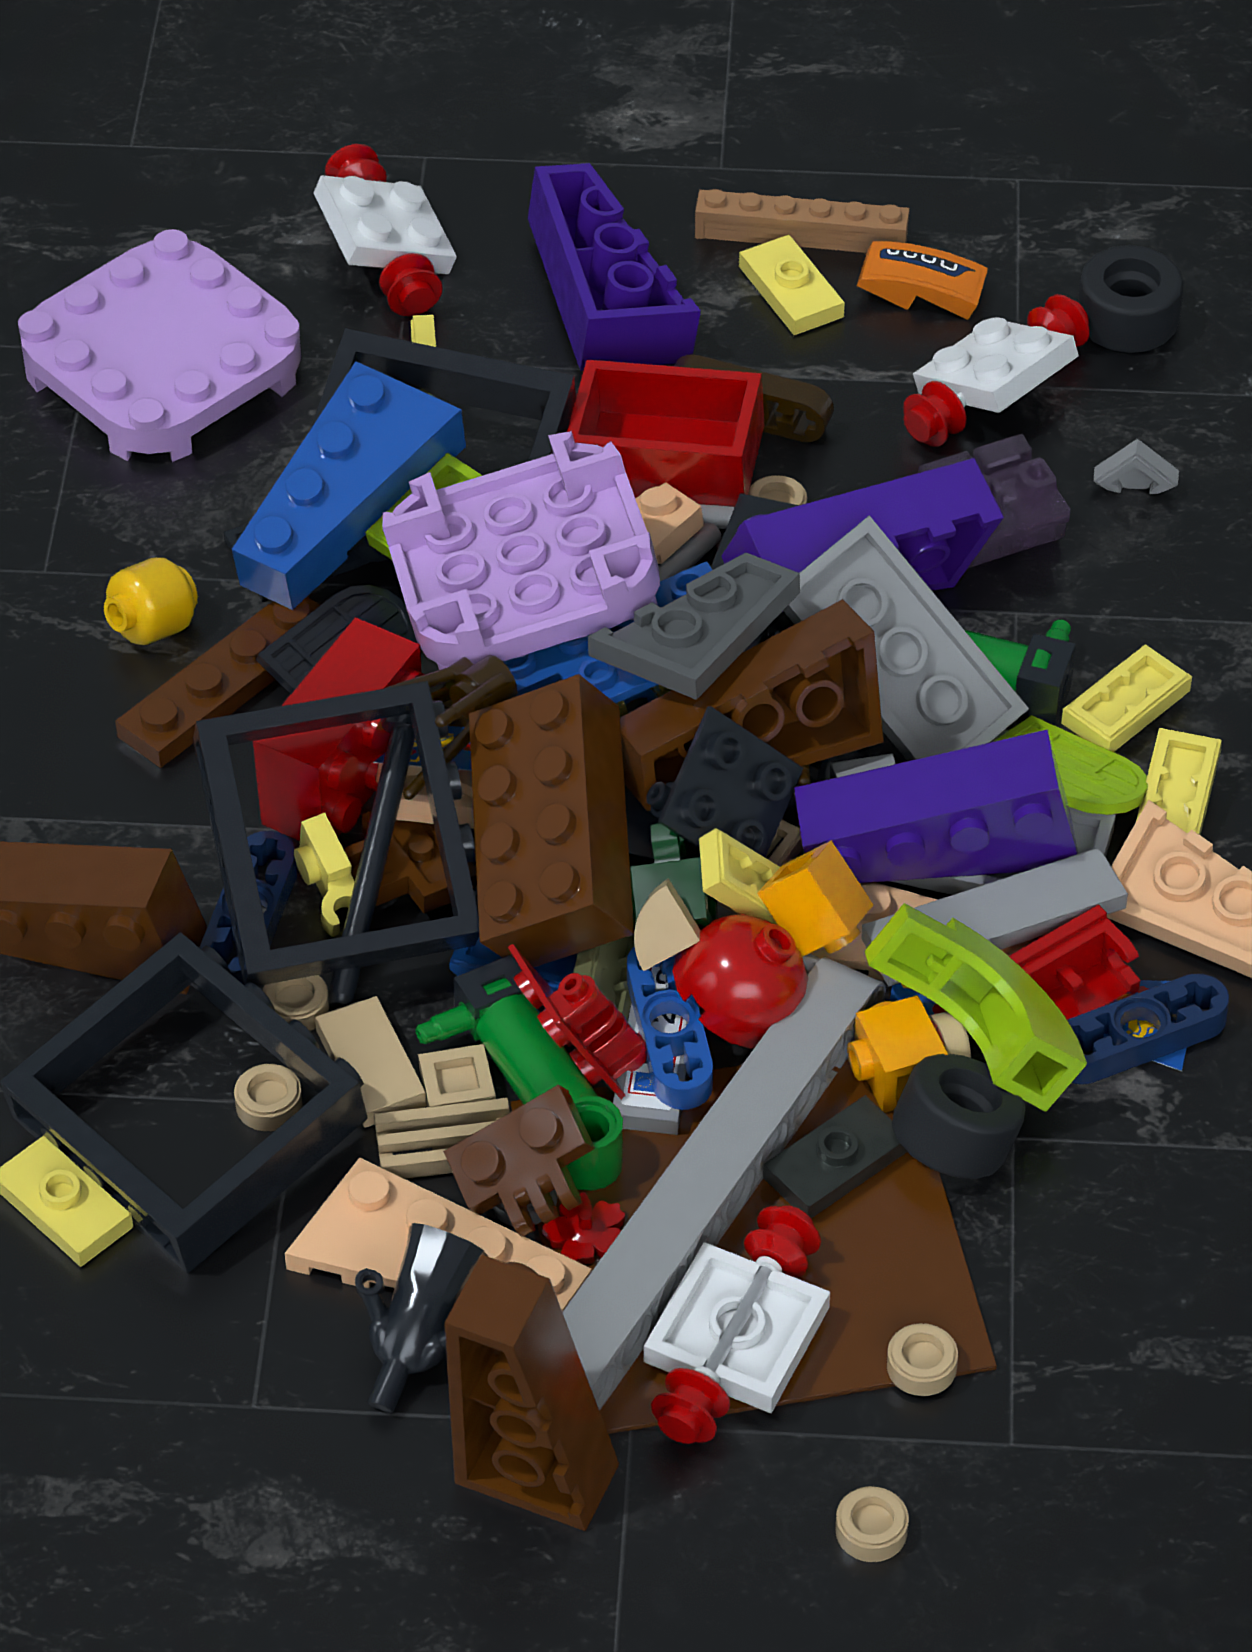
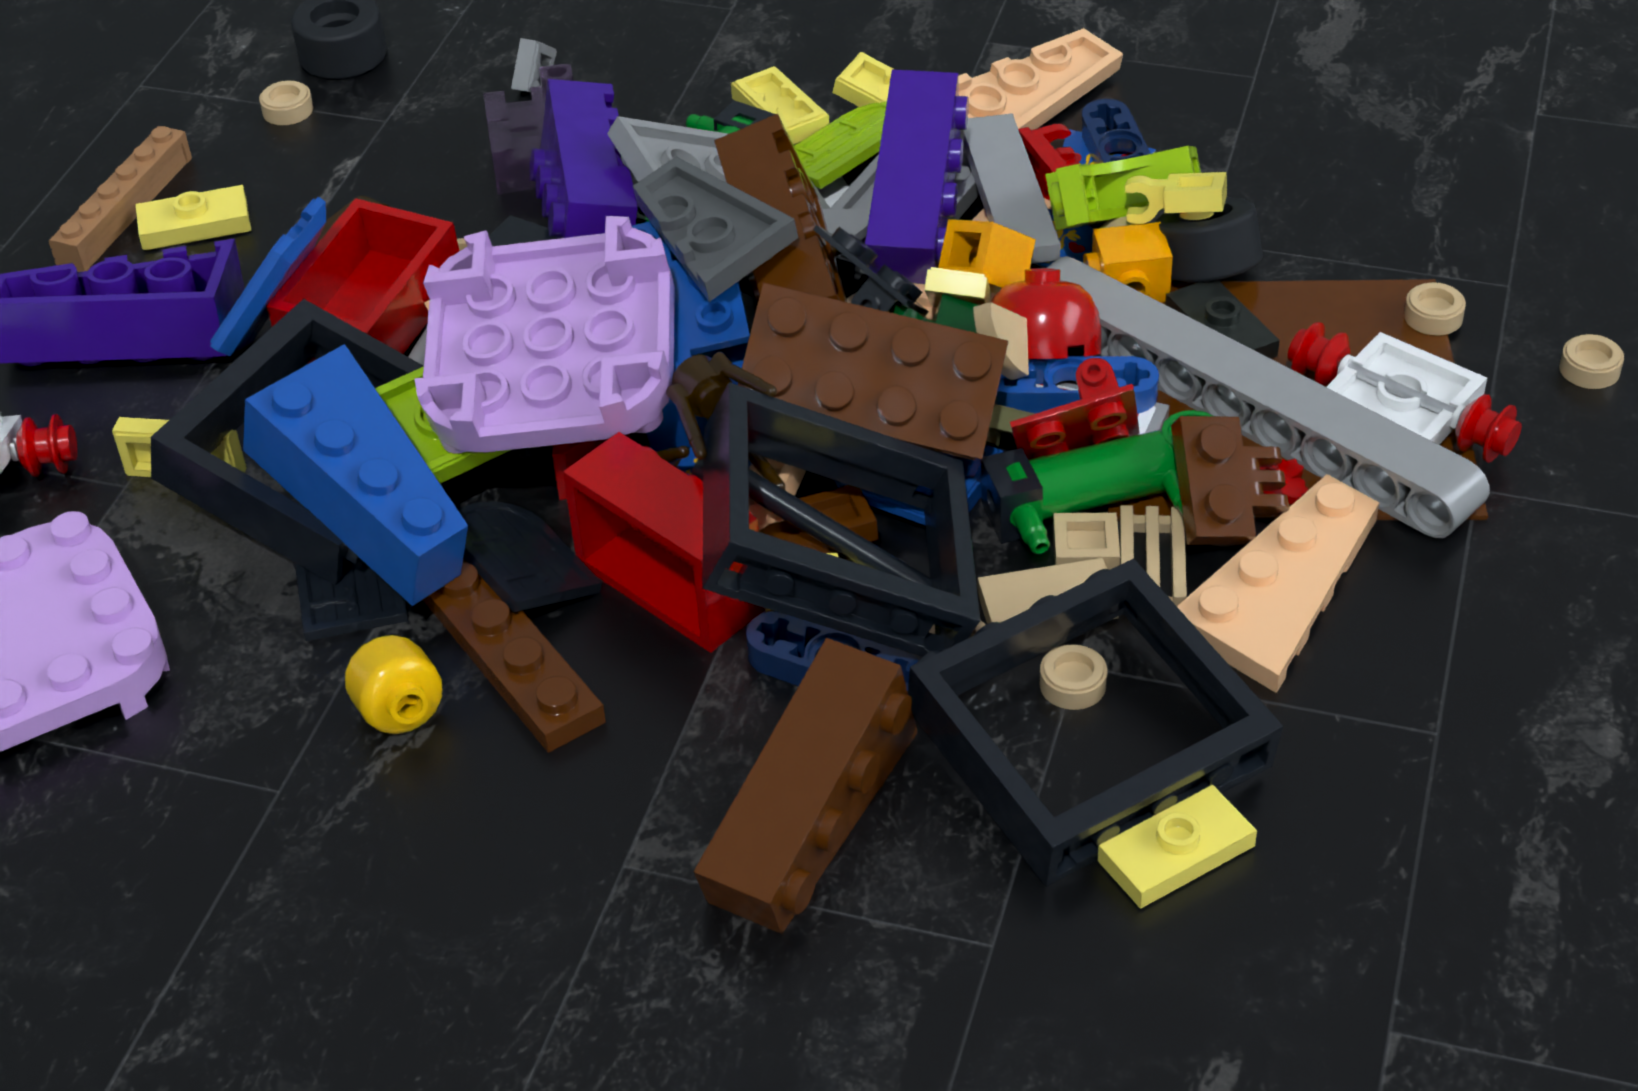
camera: 75 degrees left, 5 degrees down
(412, 1329) = (1372, 577): black piece -> none
(522, 1398) = (1532, 473): reddish brown wedge -> none
(609, 343) = (284, 258): none -> blue tile
(909, 270) = (235, 139): orange slope -> none
(965, 1056) = (1189, 194): none -> light yellow plate
(993, 367) = (380, 112): white plate -> none
(1011, 296) = (286, 103): none -> tan tile

